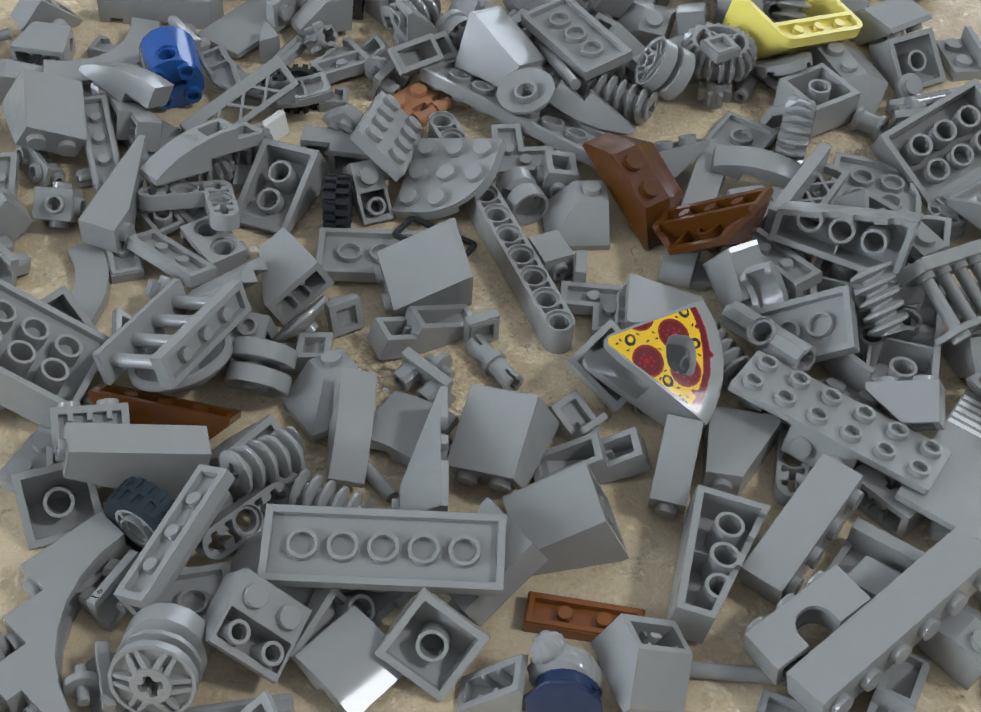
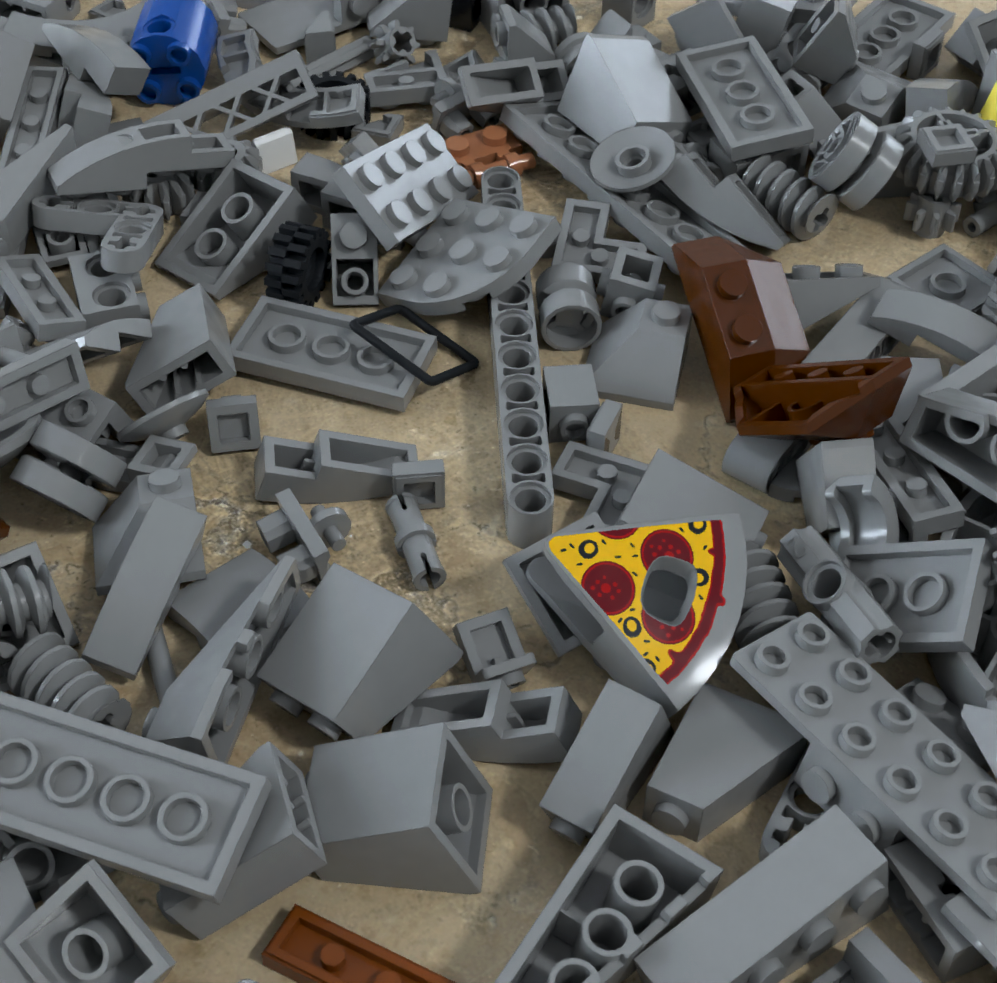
camera: 20 degrees right, 0 degrees up
(425, 270) = (364, 383): light grey slope -> none
(559, 66) = (704, 137): light grey bar -> none

